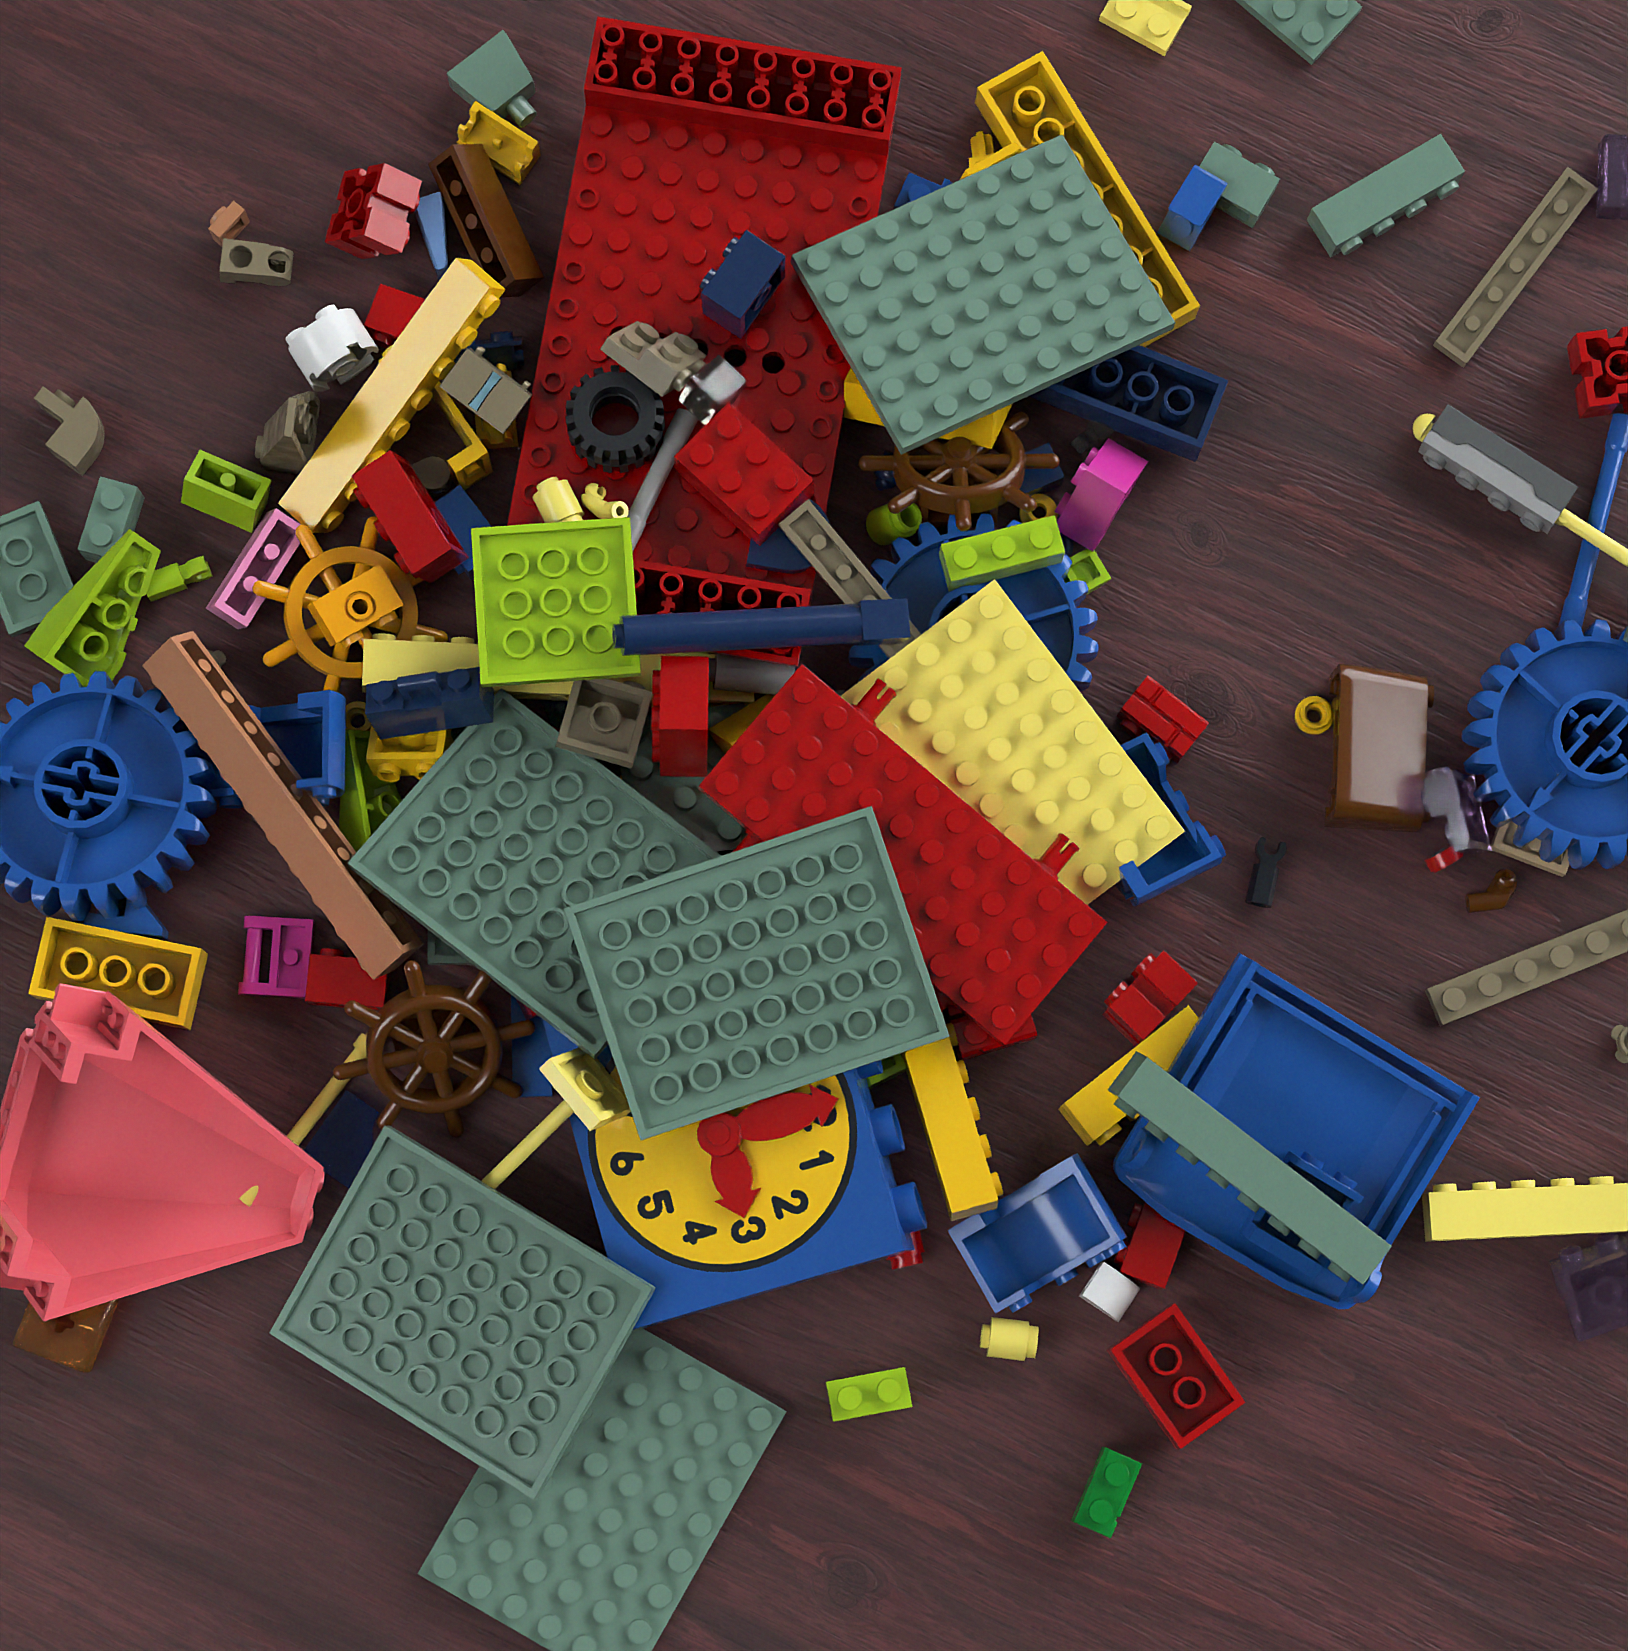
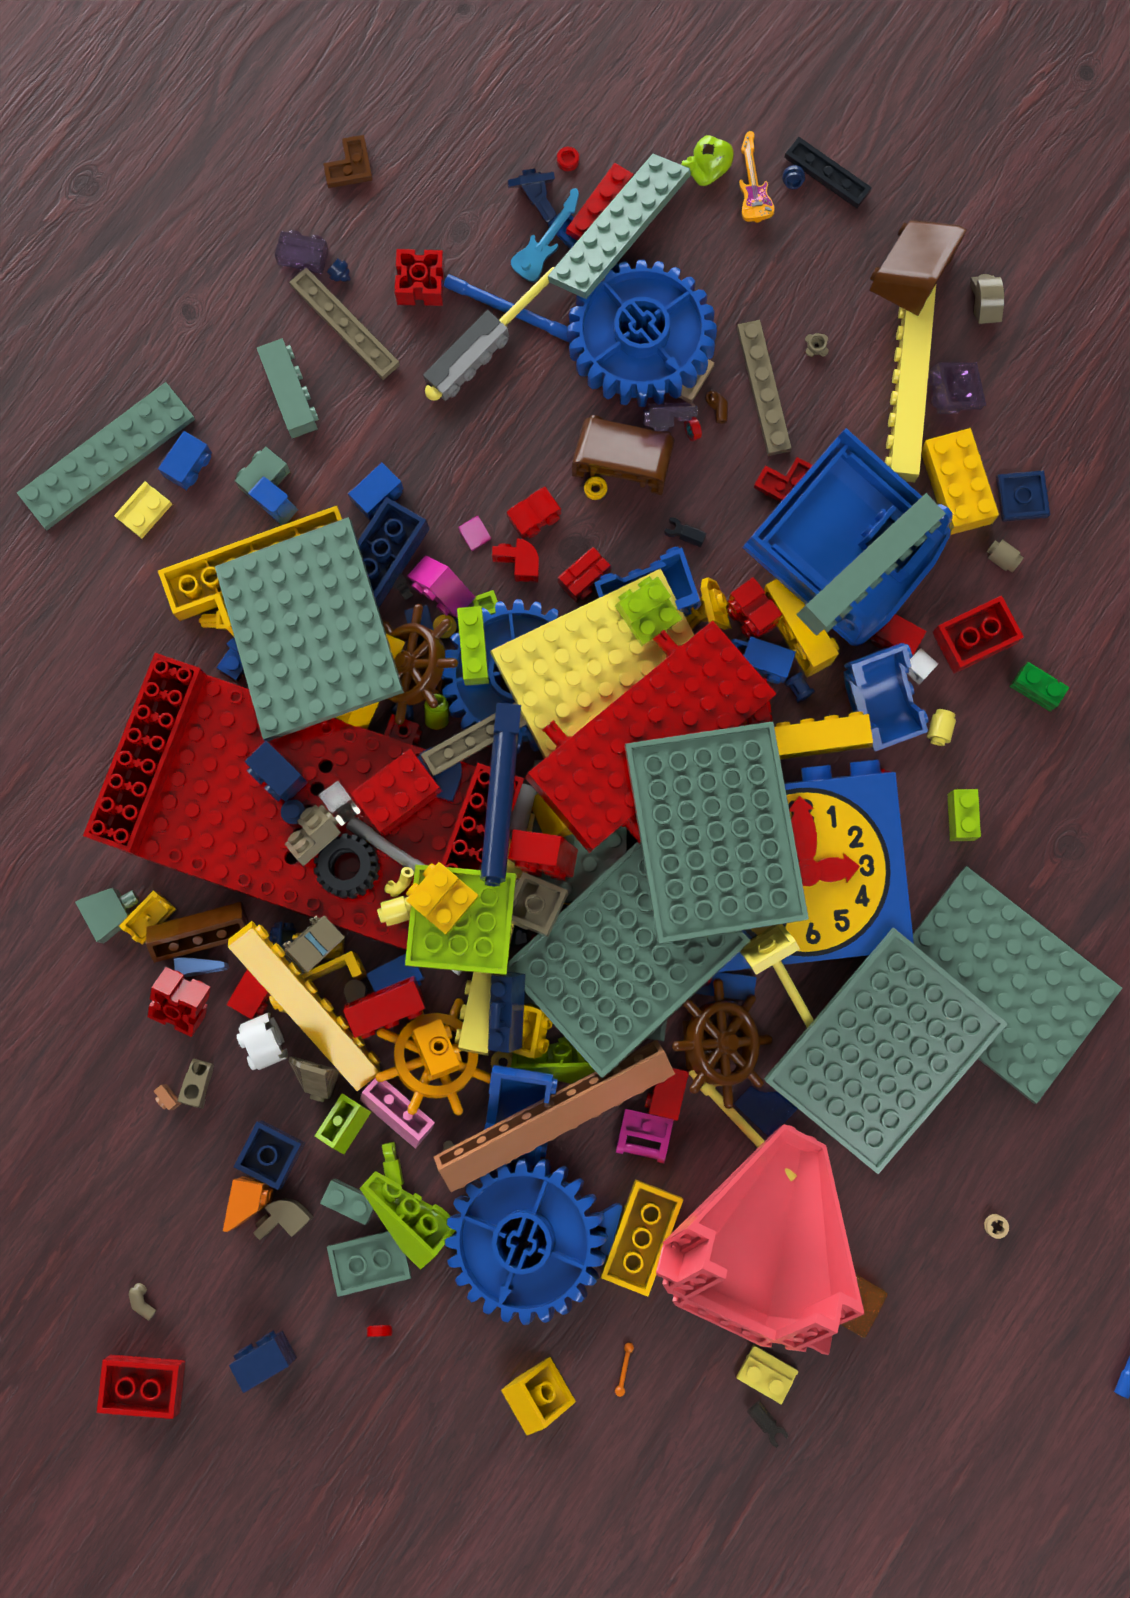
camera: 75 degrees left, 0 degrees up
(91, 366) = (245, 1200): none -> orange slope
(163, 390) = (269, 1154): none -> dark blue brick
(219, 1548) = (1004, 1224): none -> tan bush
(583, 563) = (441, 897): none -> yellow plate
(690, 322) = (292, 811): none -> dark blue plate
(851, 493) = (412, 737): none -> red brick
(1036, 1096) = (799, 687): none -> dark blue bush
(1073, 1029) = (767, 658): none -> blue brick
(1108, 819) = (648, 610): none -> lime plate
(1143, 928) = (712, 606): none -> yellow piece
(1168, 622) = (523, 556): none -> red brick
(1201, 534) = (474, 533): none -> dark pink slope
(1235, 61) = (185, 460): none -> blue brick
(1244, 363) = (374, 489): none -> blue brick
(1251, 623) = (534, 513): none -> red brick
(1322, 1407) = (1004, 555): none -> dark tan brick
(1374, 1012) = (778, 485): none -> red plate
(1434, 1427) = (1023, 496): none -> dark blue tile
(1435, 1312) = (960, 480): none -> yellow brick
(1604, 243) = (339, 271): none -> dark blue plate

